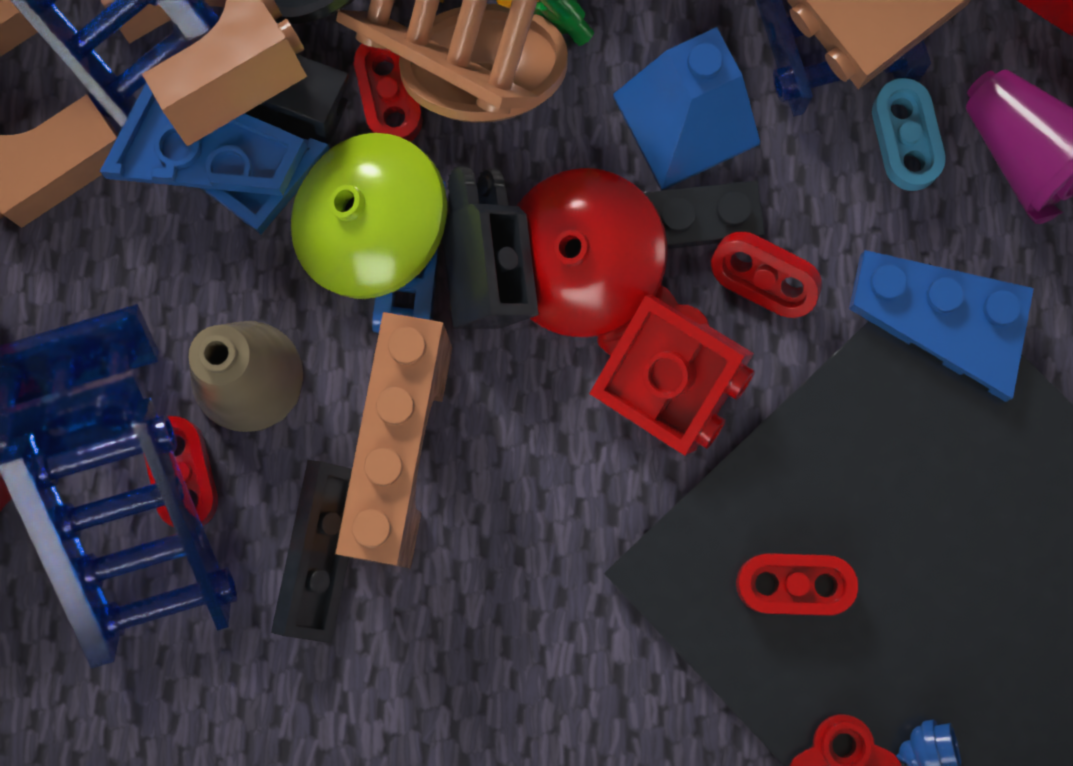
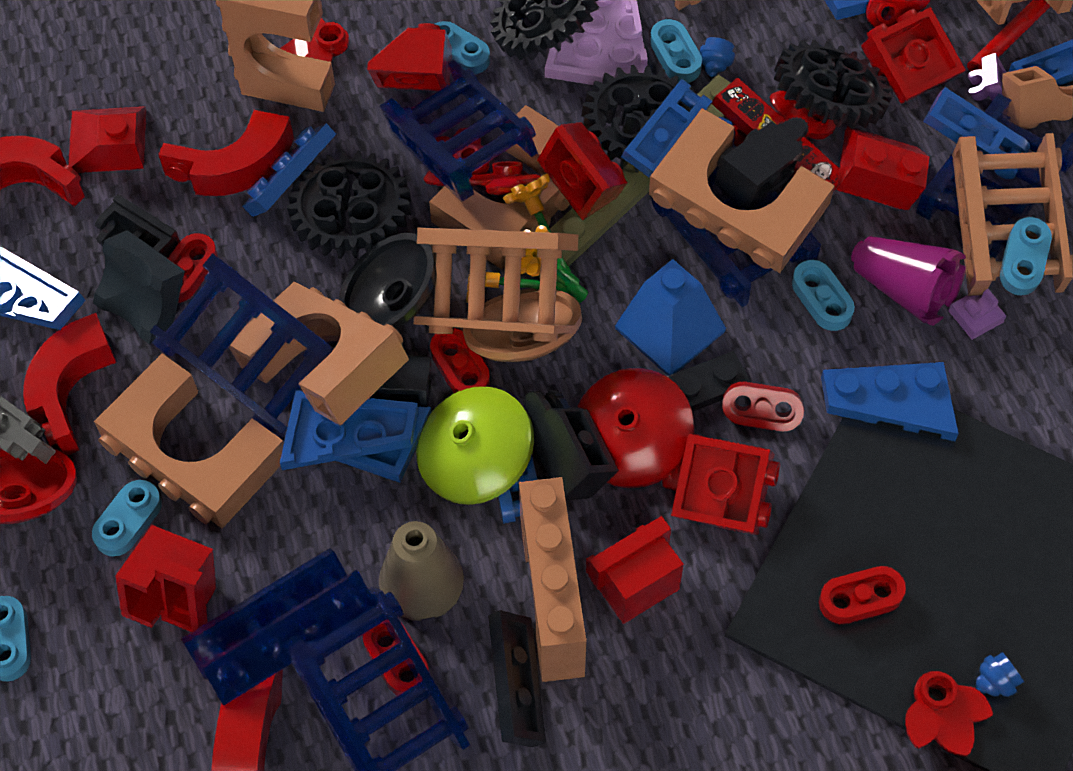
camera: 20 degrees left, 20 degrees down
(514, 456) = (637, 570): none -> red plate

